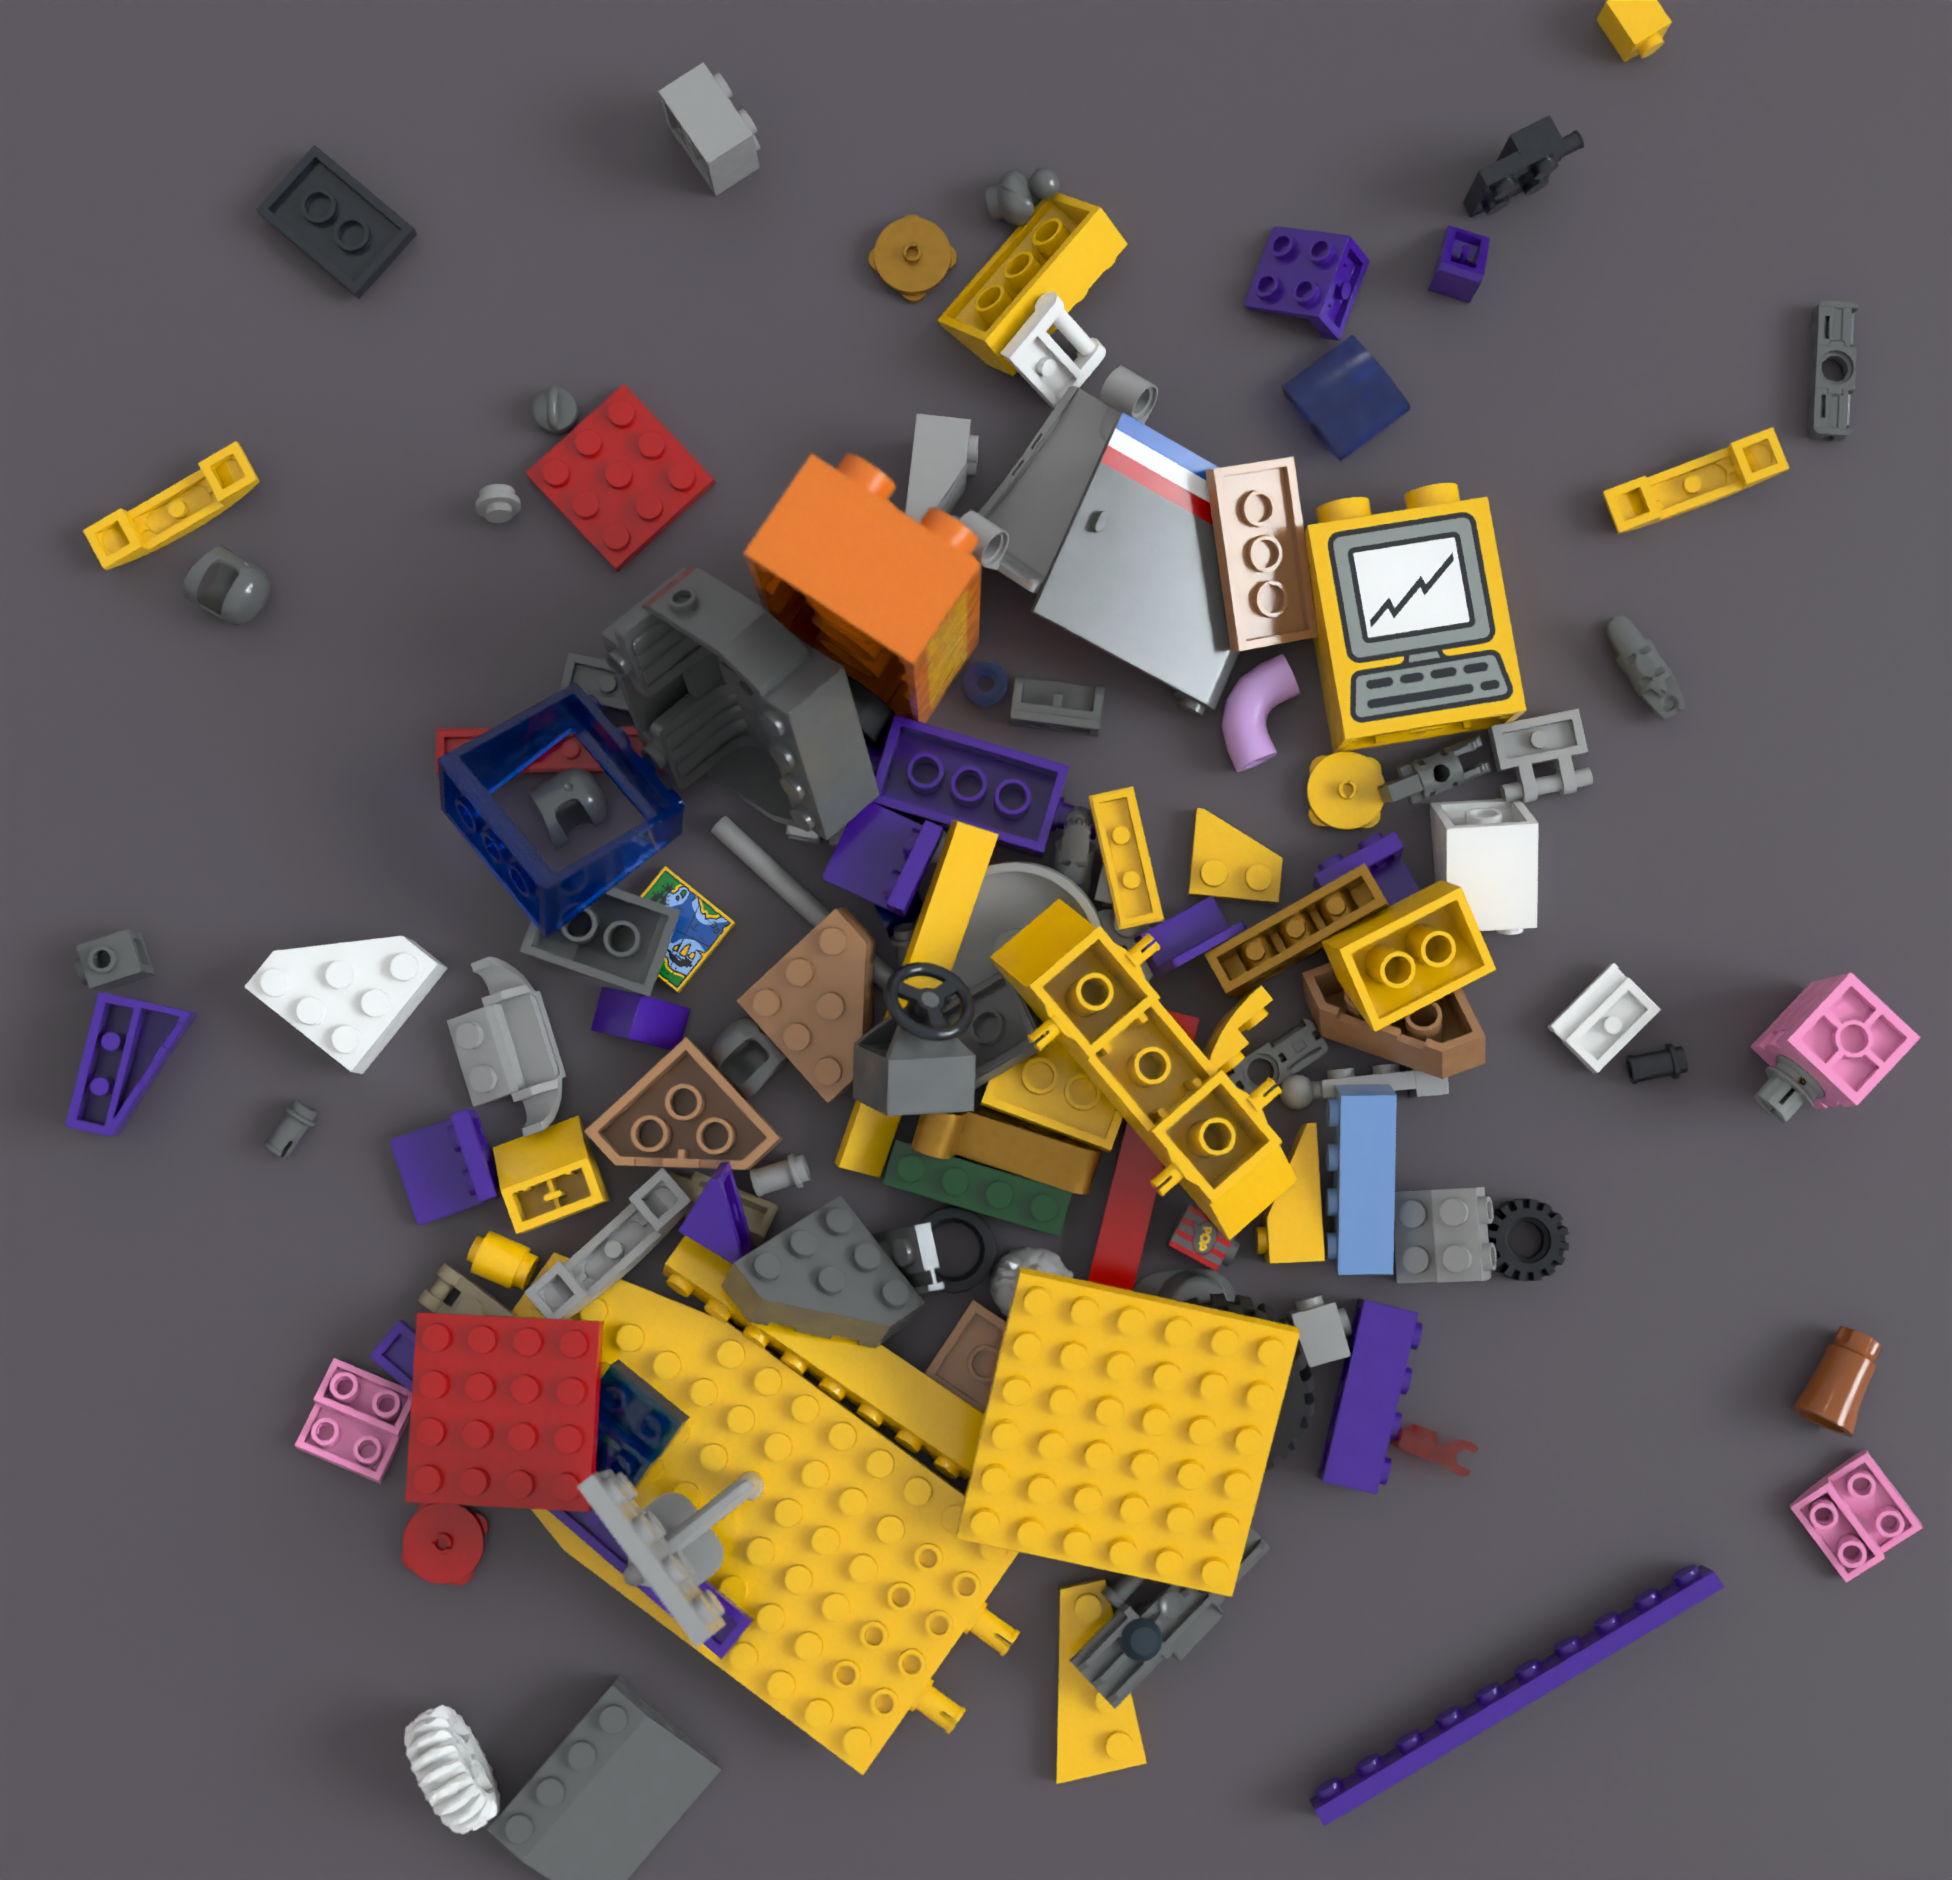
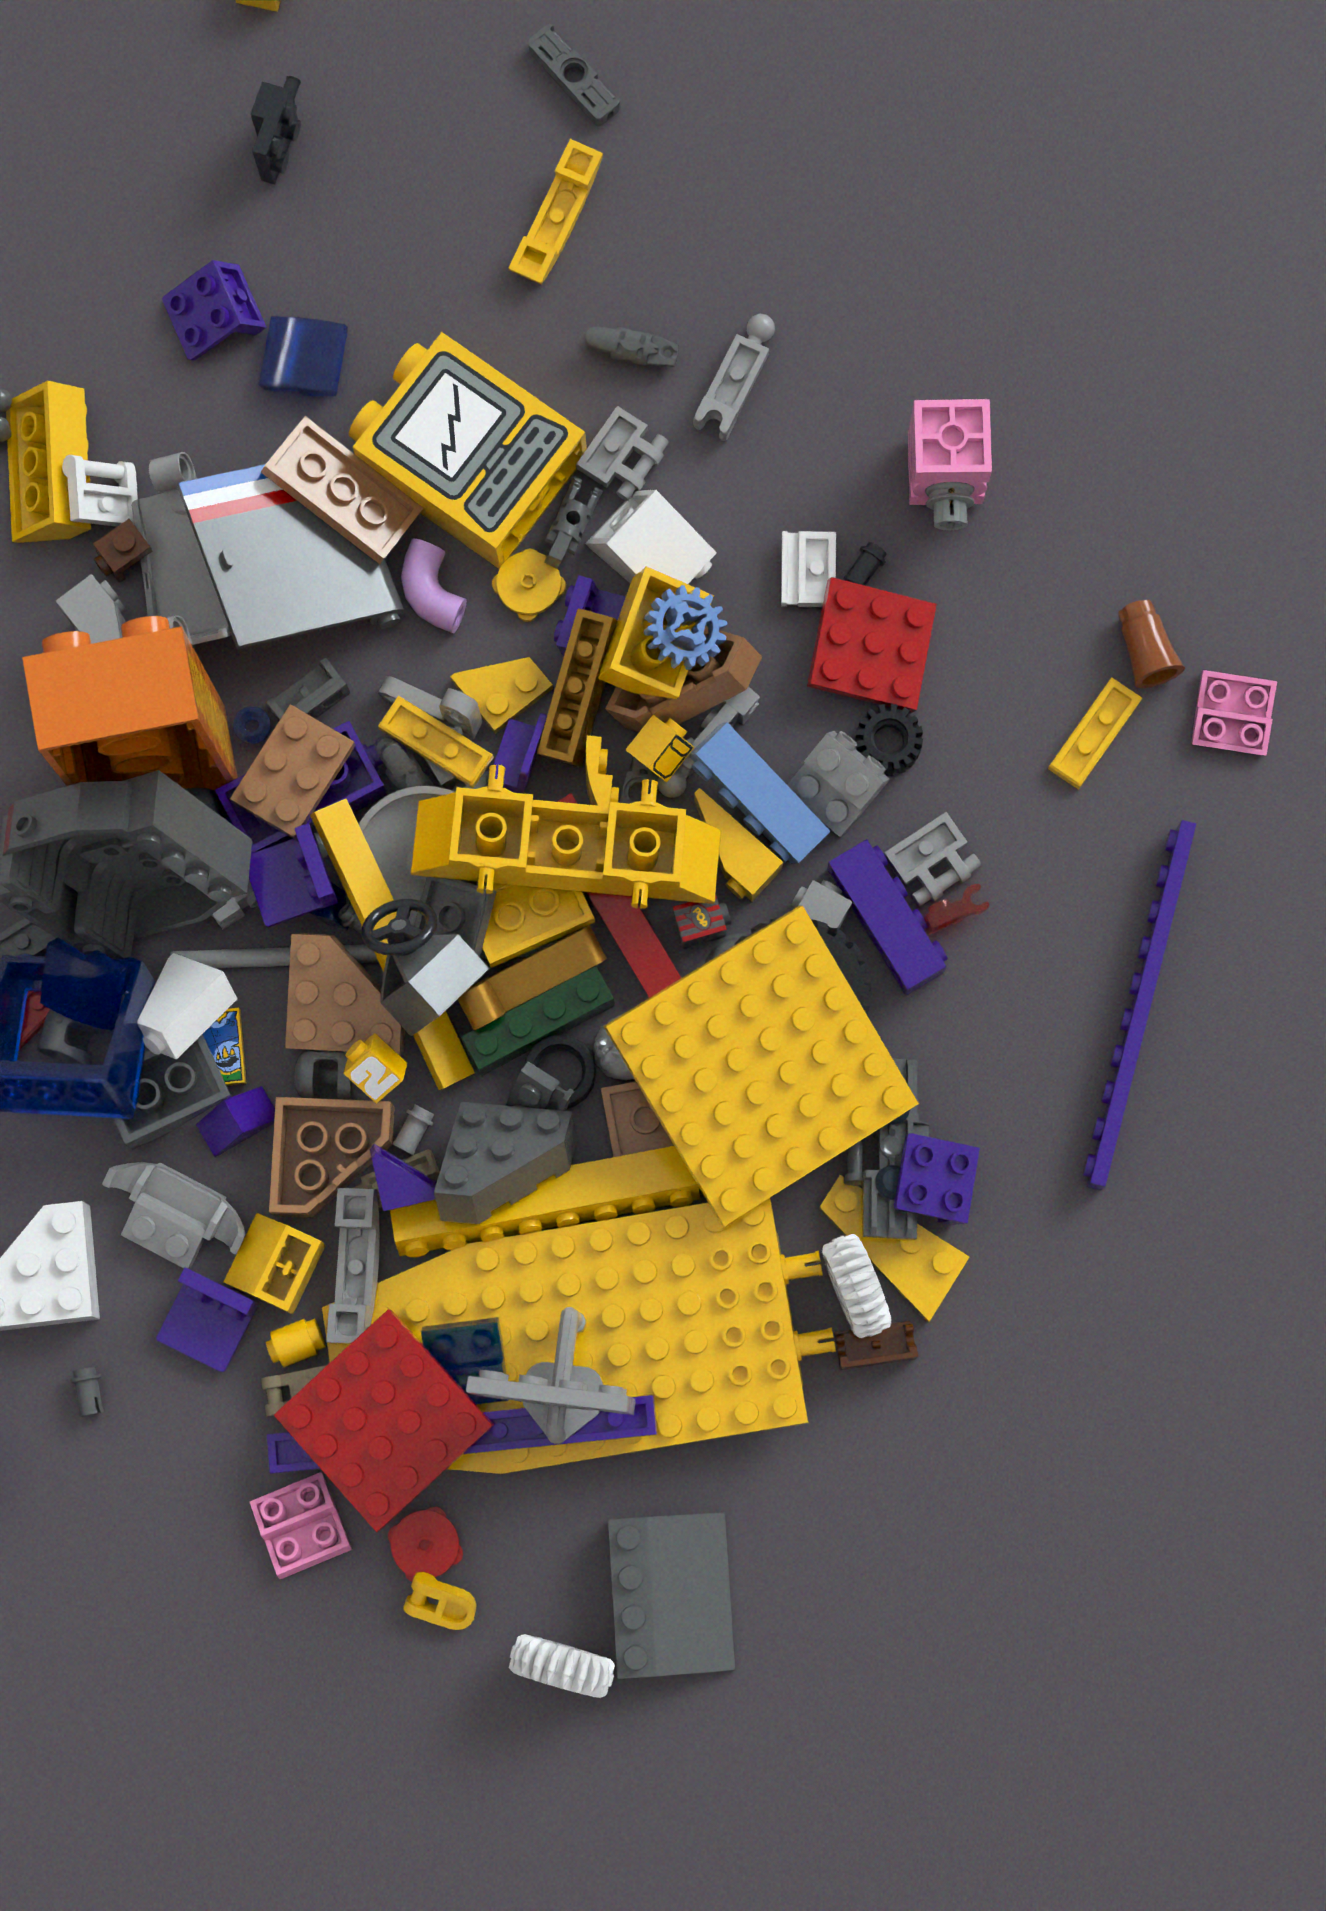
camera: 40 degrees left, 5 degrees down
(415, 1620) = (454, 1607): none -> yellow plate
(612, 780) = (82, 985): none -> clear blue slope
(683, 879) = (183, 1005): none -> white slope
(793, 1096) = (374, 1067): none -> yellow brick
(976, 764) = (292, 771): none -> medium nougat plate
(990, 1759) = (890, 1346): none -> reddish brown hinge
(1021, 419) = (120, 550): none -> reddish brown bracket
(1021, 1698) = (856, 1286): none -> white gear
(1165, 844) = (454, 710): none -> light grey beam
(1183, 1674) = (936, 1178): none -> dark purple bracket
(1317, 1055) = (661, 747): none -> yellow brick
(1447, 958) = (681, 614): none -> medium blue gear
(1460, 264) = (295, 217): dark purple slope -> none
(1461, 1369) = (927, 848): none -> light grey plate
(1593, 1141) = (871, 644): none -> red plate
(1710, 783) = (736, 376): none -> light grey plate
(1713, 1411) = (1095, 733): none -> yellow tile

